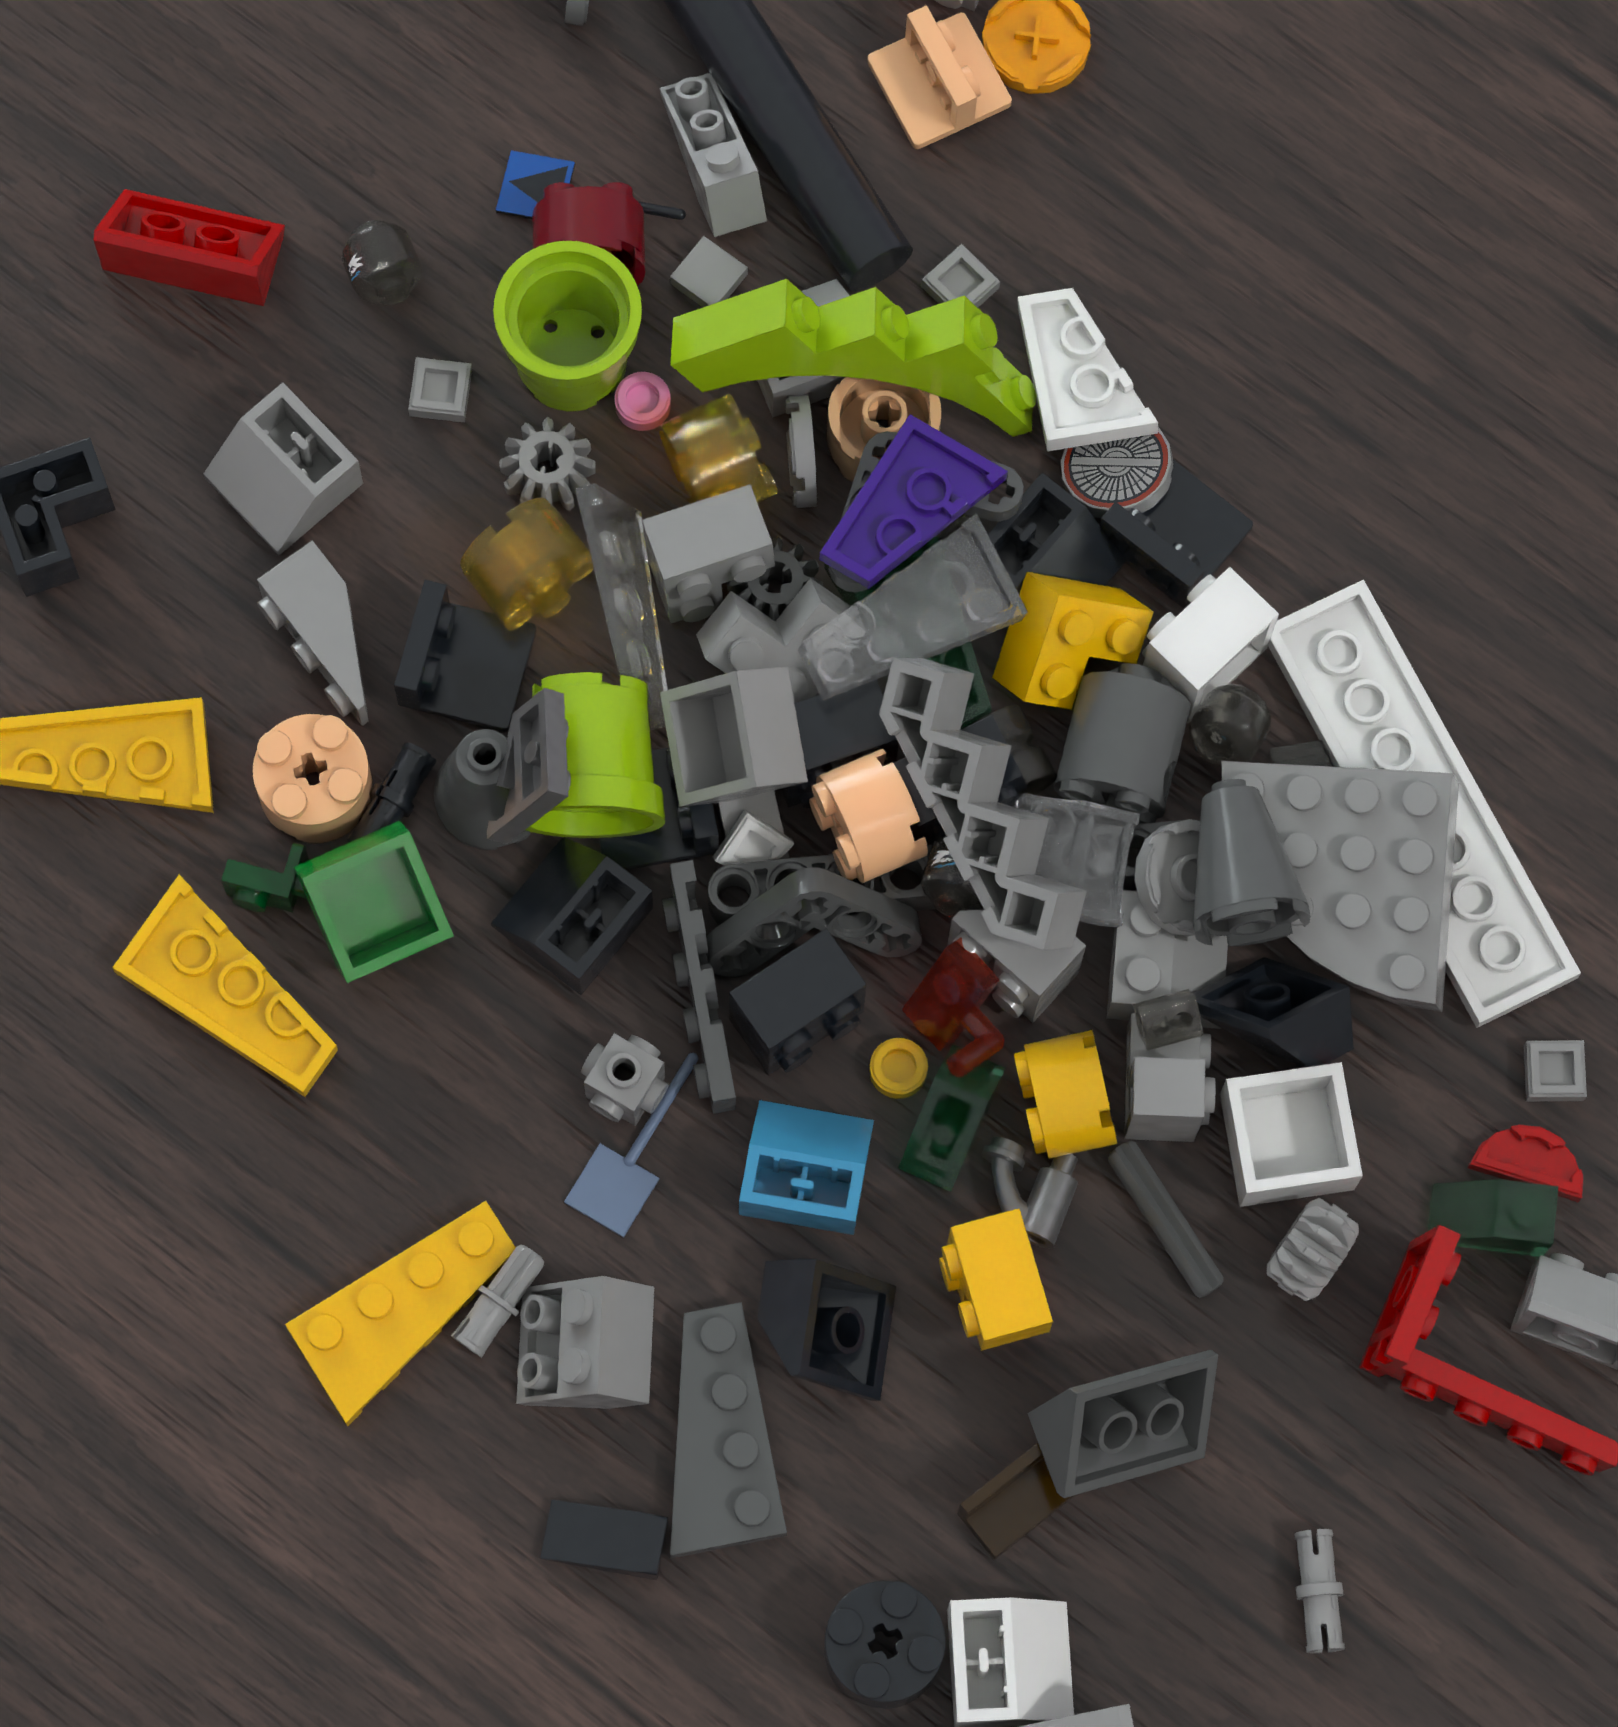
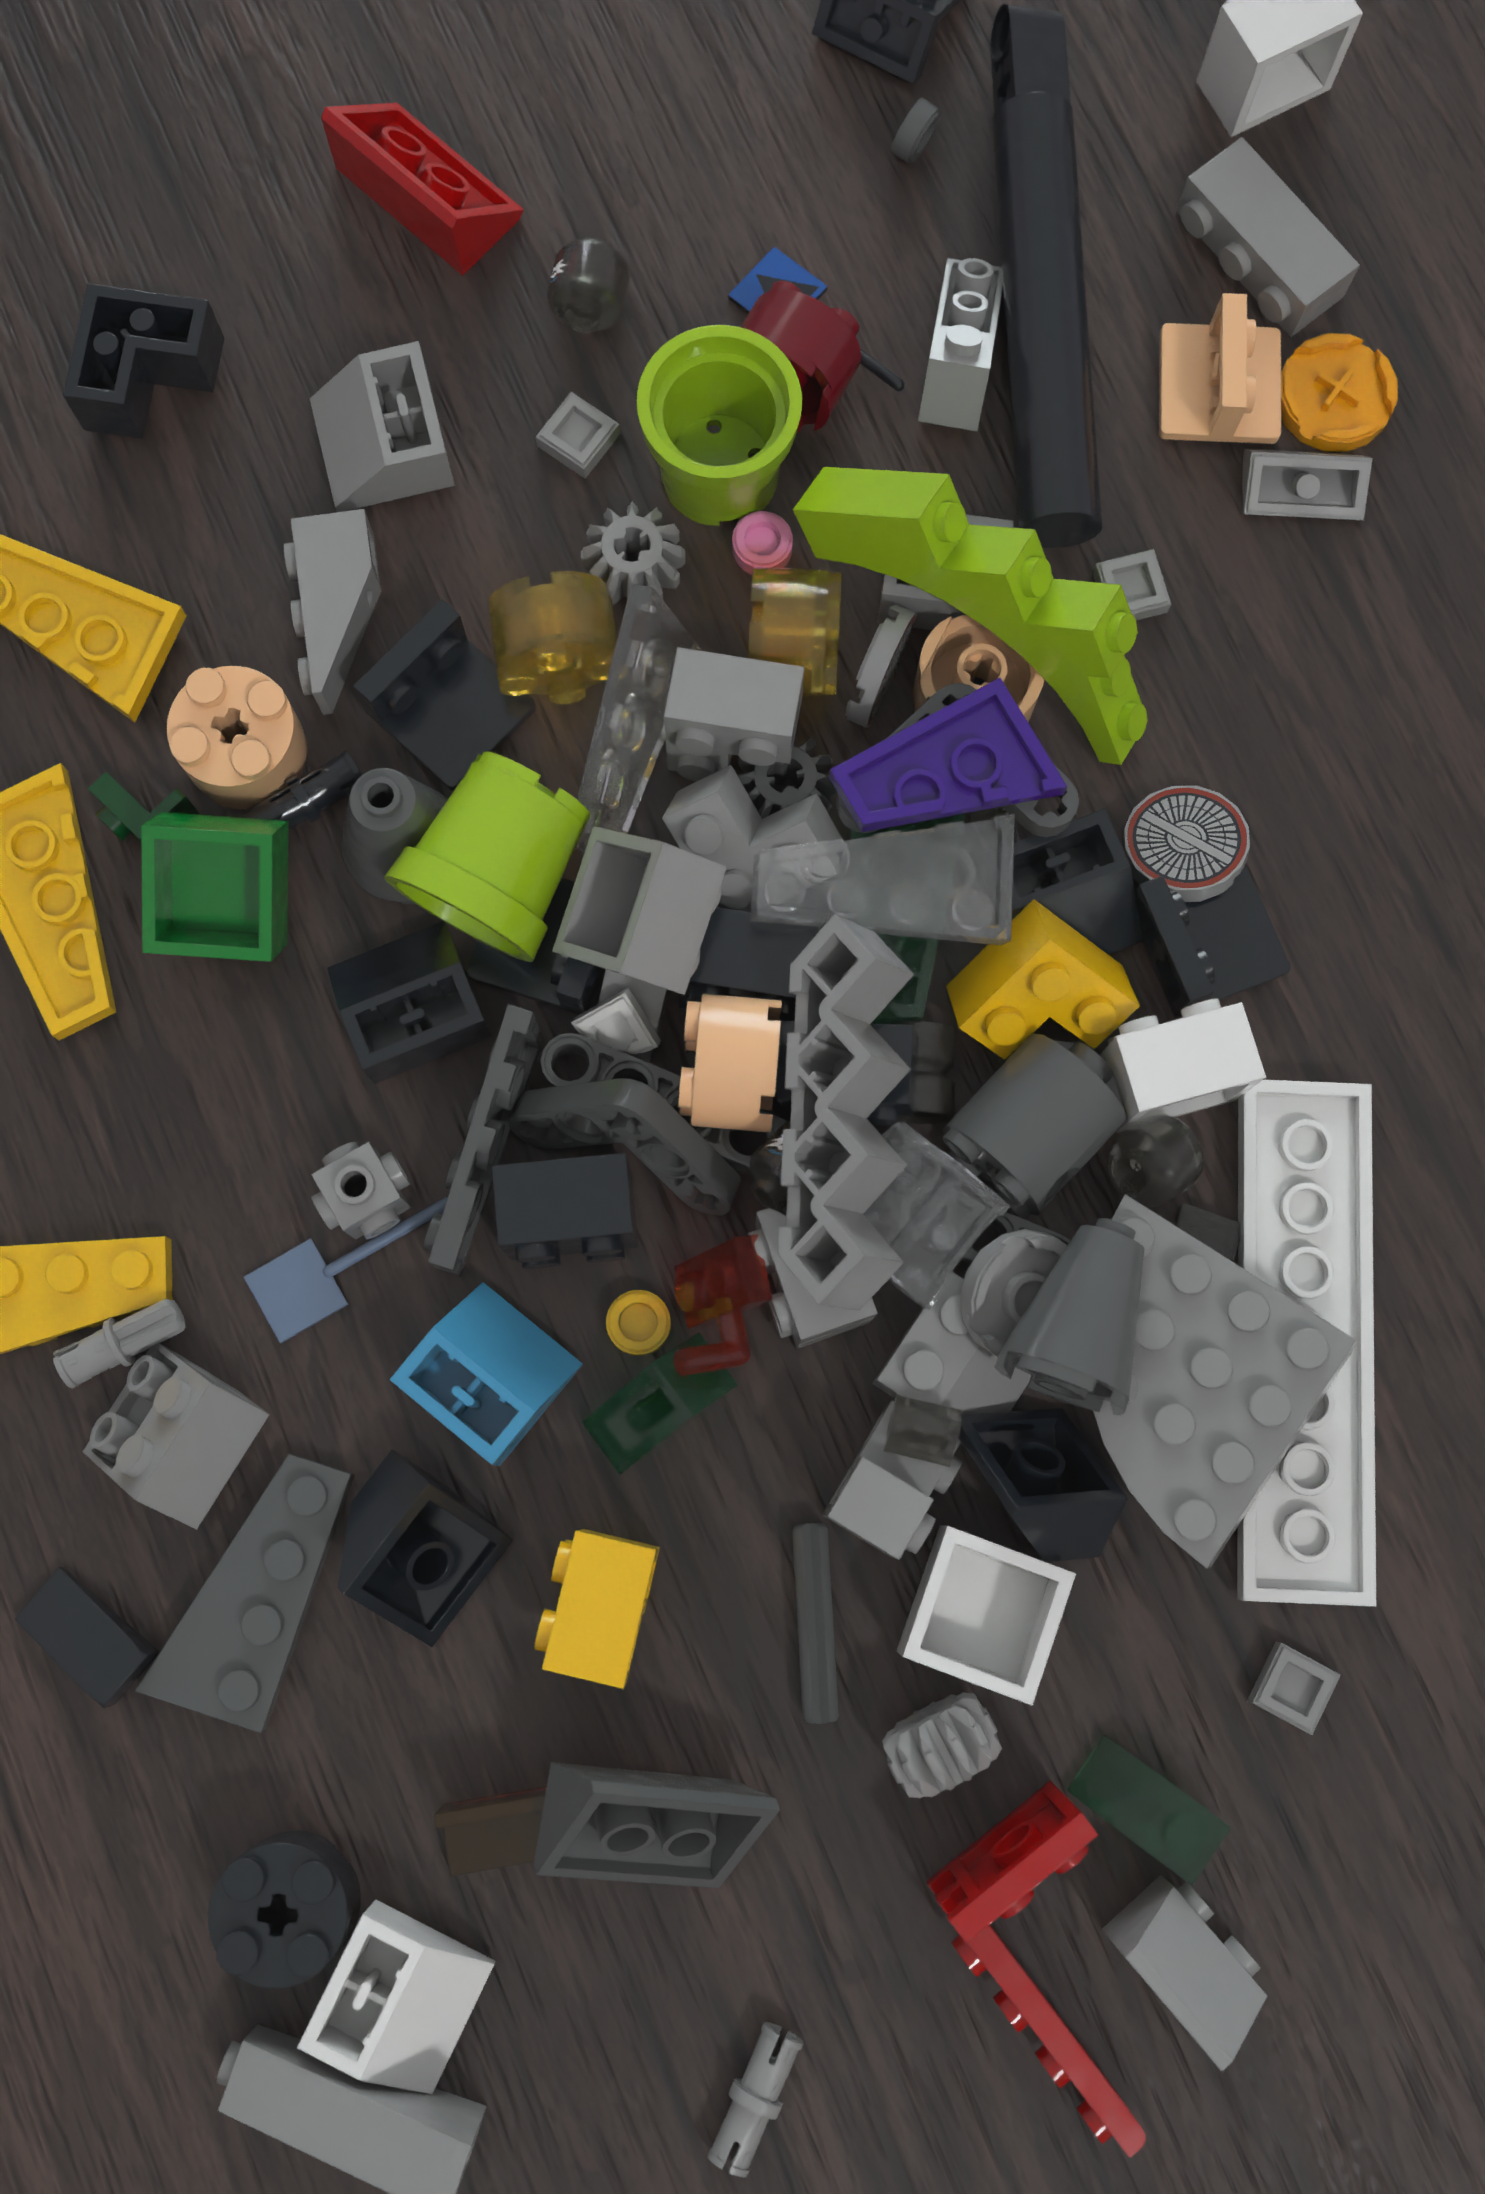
camera: 30 degrees right, 5 degrees up
(533, 765) = (418, 830): flat silver wing -> none
(708, 274) = (893, 448): light grey tile -> none
(1049, 1196) = (712, 1537): flat silver plant -> none
(1051, 127) = (1305, 484): none -> light grey slope
(1068, 1094) = (780, 1447): yellow brick -> none
(1075, 378) = (1193, 734): white wing -> none
(1530, 1156) = (1220, 1766): red tile -> none

